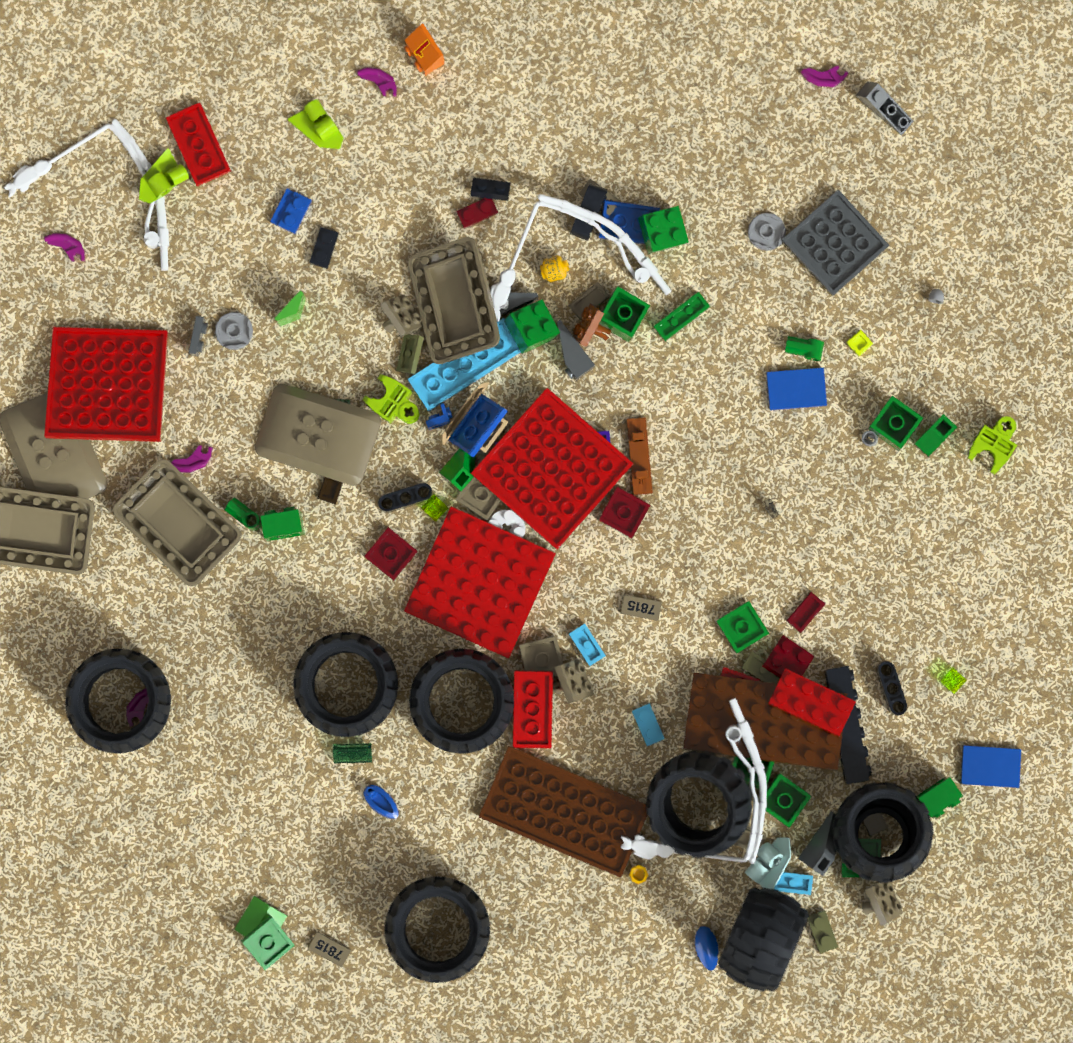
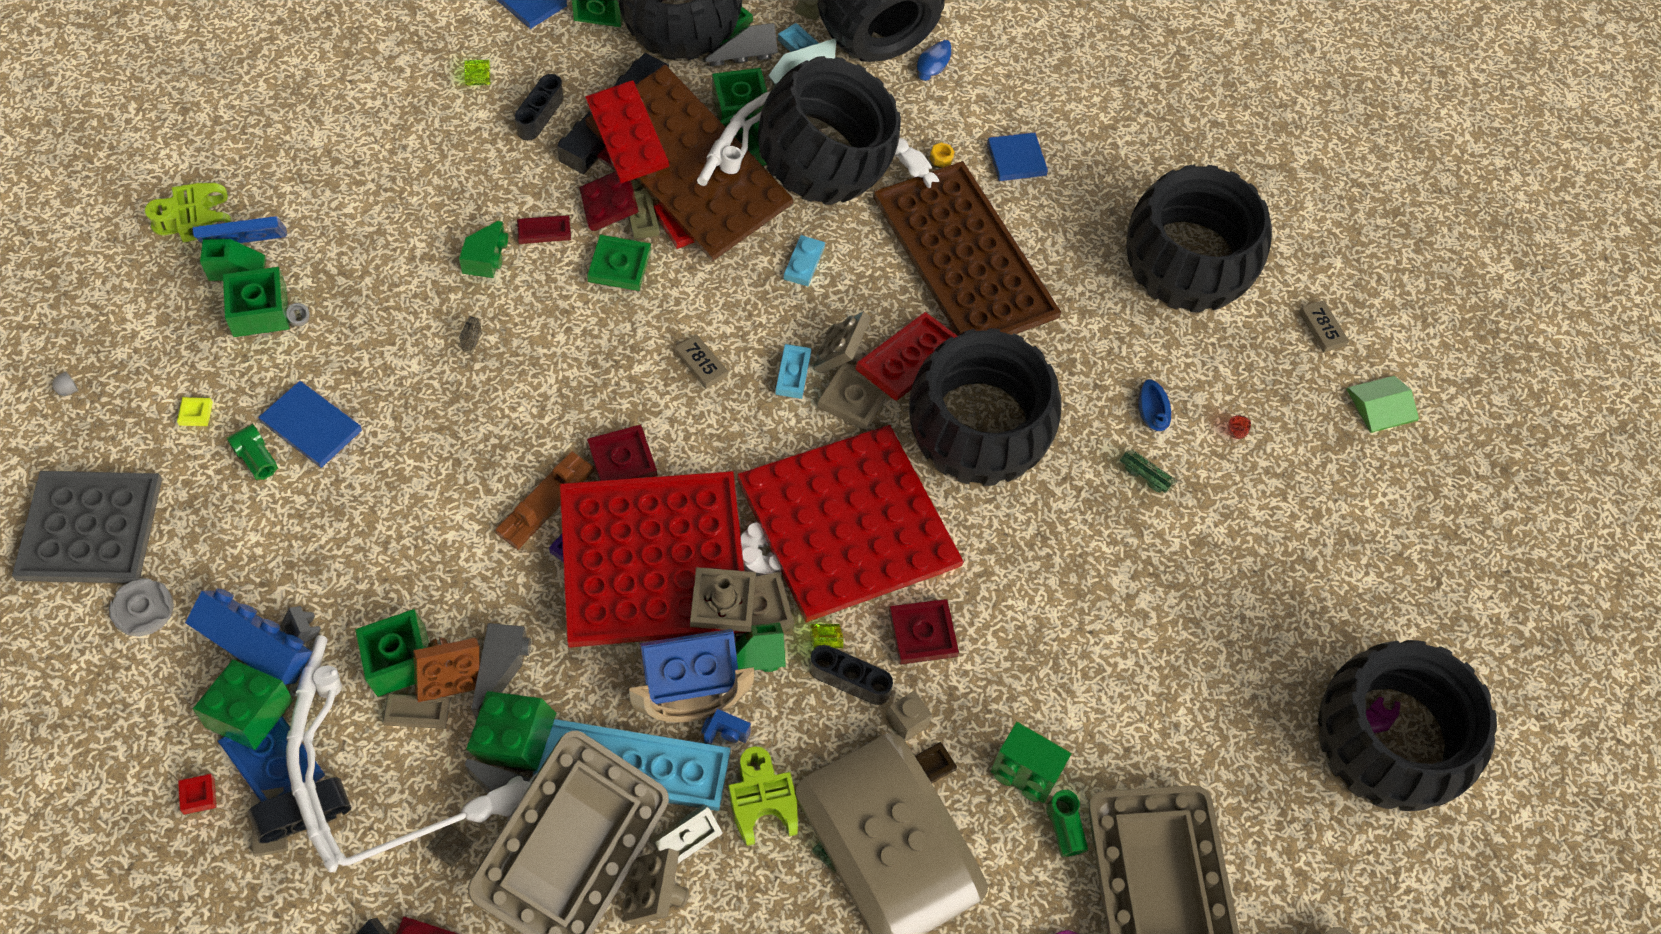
camera: 145 degrees left, 25 degrees down
(267, 943) = (1393, 372): plate -> none
(305, 684) = (1121, 477): black tyre -> none
(329, 830) = (1239, 426): none -> clear red hinge
(359, 500) = (909, 716): none -> dark tan brick
(494, 472) = (724, 589): none -> dark tan plate
(507, 257) = (449, 845): none -> clear smoke tile
(554, 268) = (413, 780): yellow head -> none
(596, 916) = (1017, 156): none -> blue tile
(642, 179) = (197, 794): none -> red plate
(681, 316) = (337, 597): green plate -> none
(682, 285) = (297, 624): none -> dark grey tile
(697, 260) = (248, 636): none -> blue brick
(819, 565) = (482, 251): none -> green slope
(949, 453) = (243, 231): none -> blue tile

